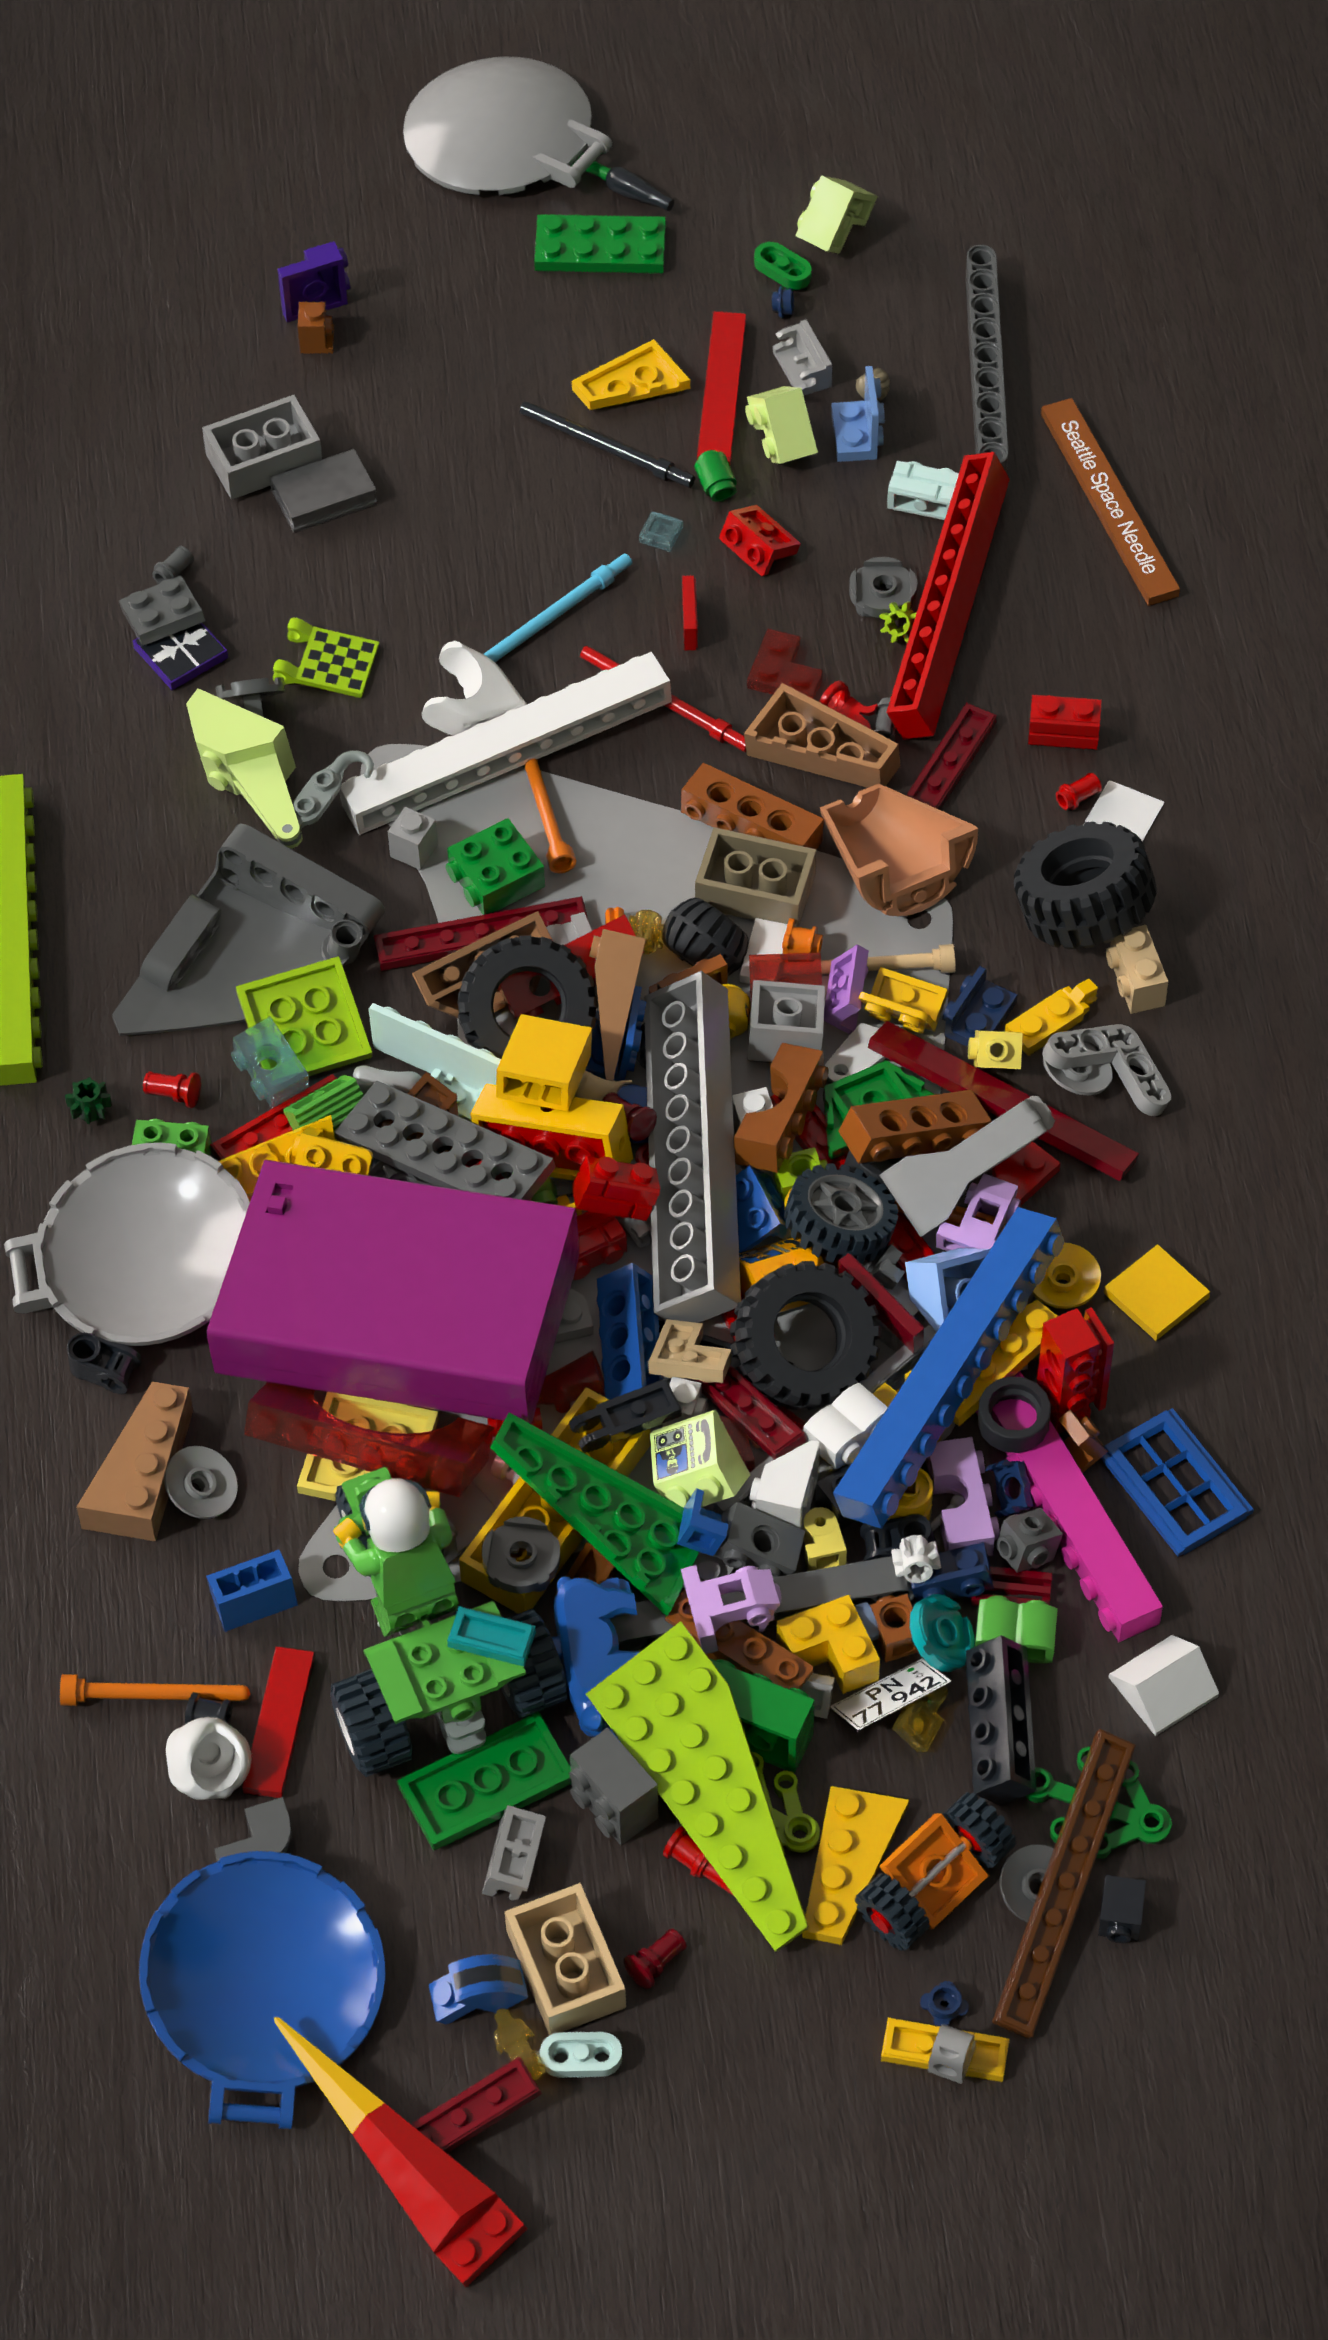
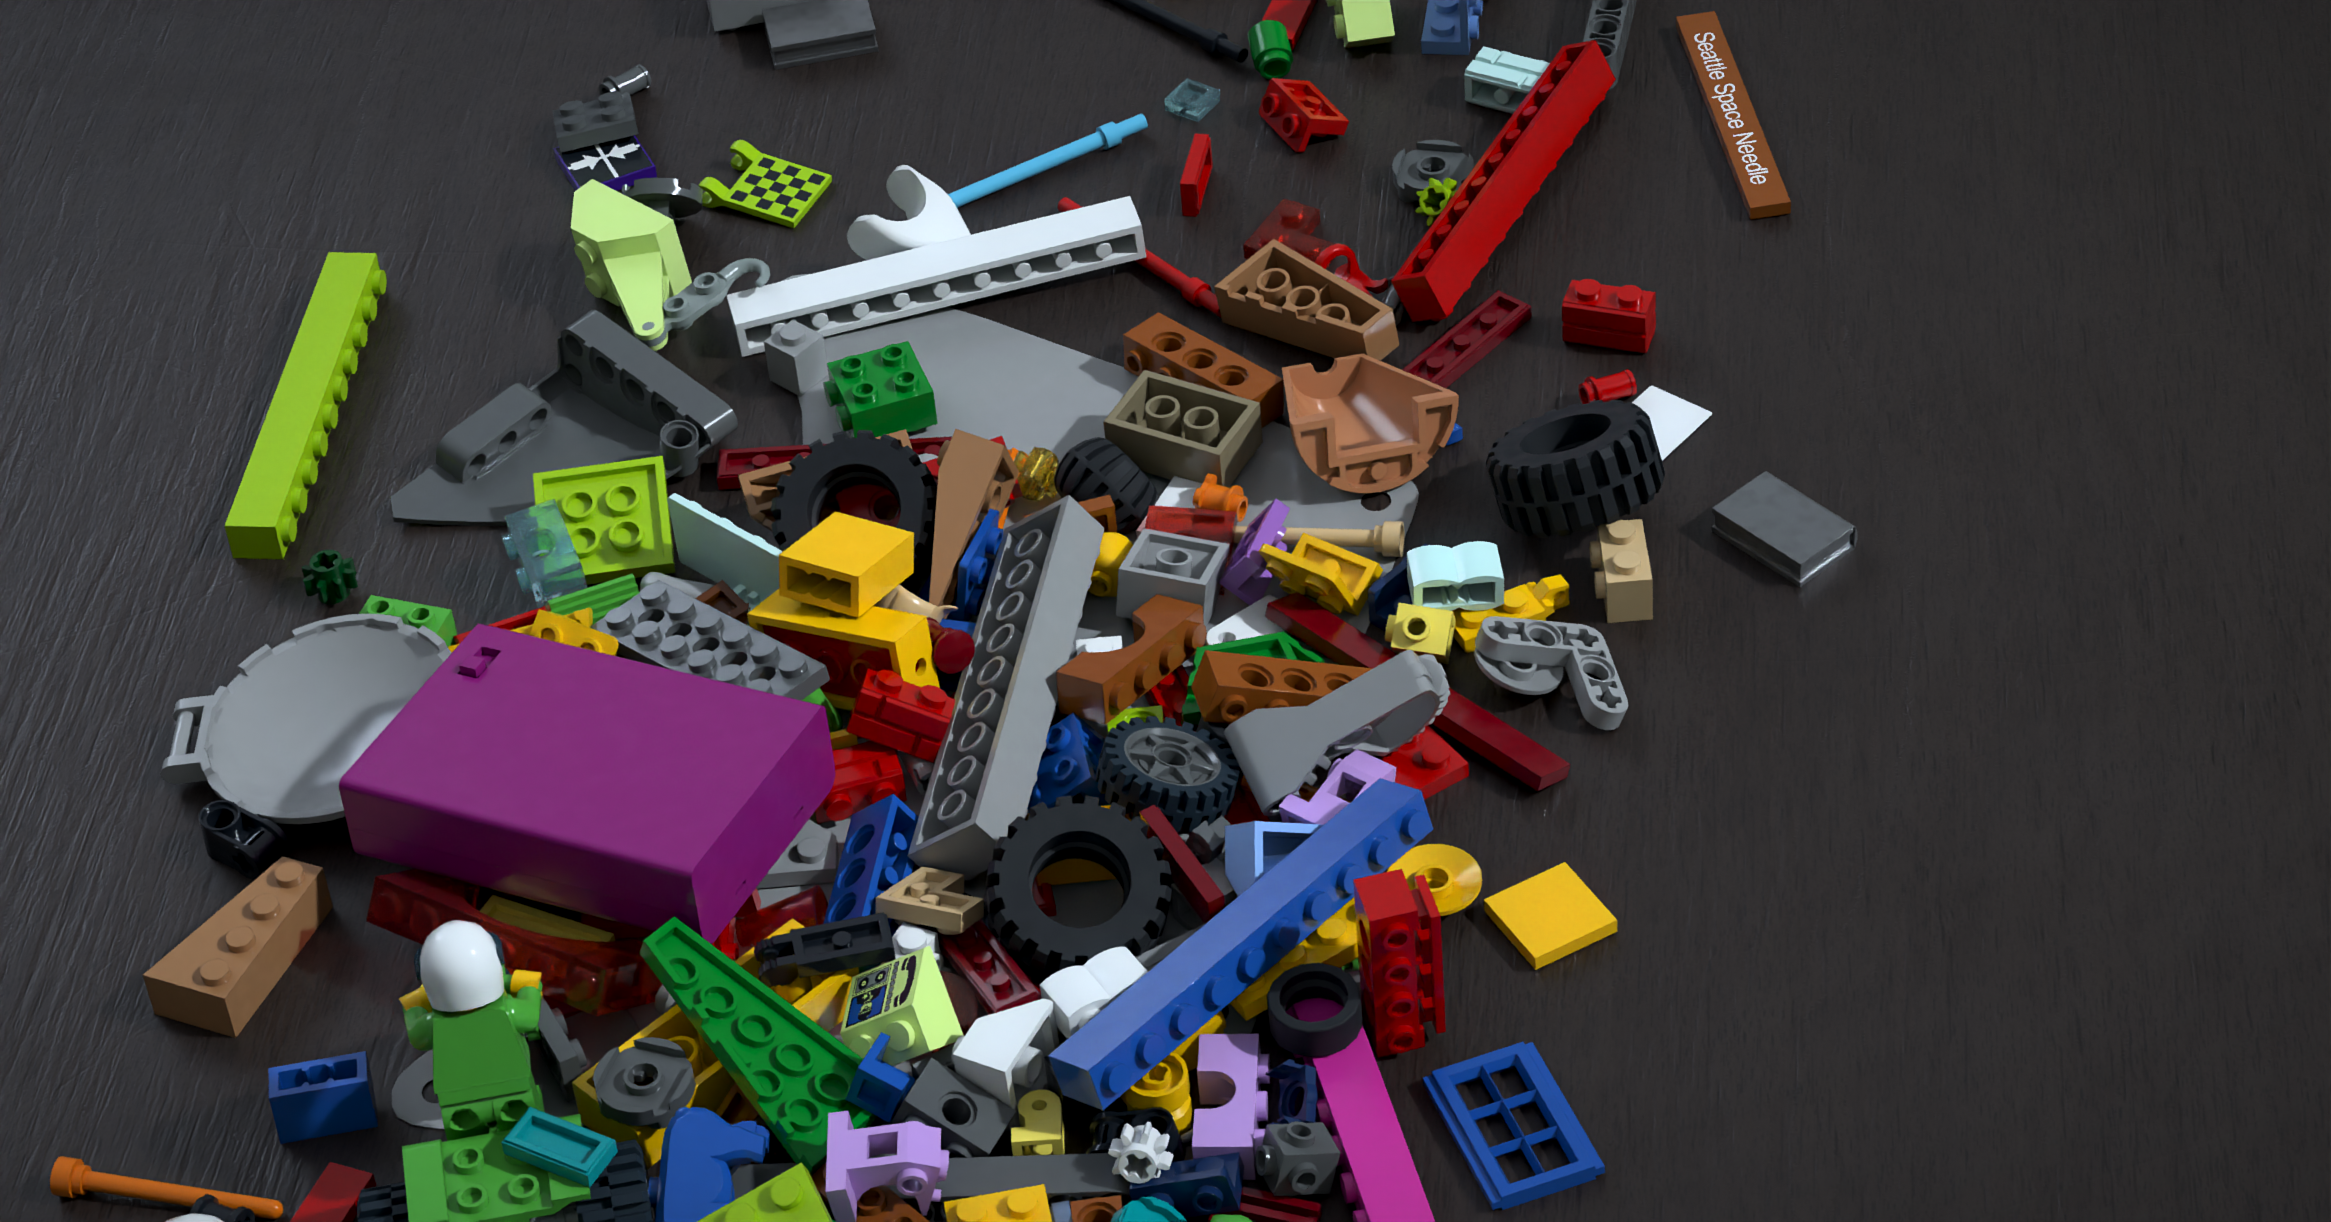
camera: 15 degrees right, 15 degrees down
(177, 1087) = (440, 576): red pin -> none
(210, 1472) = (307, 959): light grey dish -> none
(559, 854) = (964, 391): orange piece -> none
(1013, 997) = (1456, 576): none -> light aqua brick
(1083, 1440) = (1404, 1065): dark orange bracket -> none
(1249, 911) = (1783, 529): none -> flat silver piece

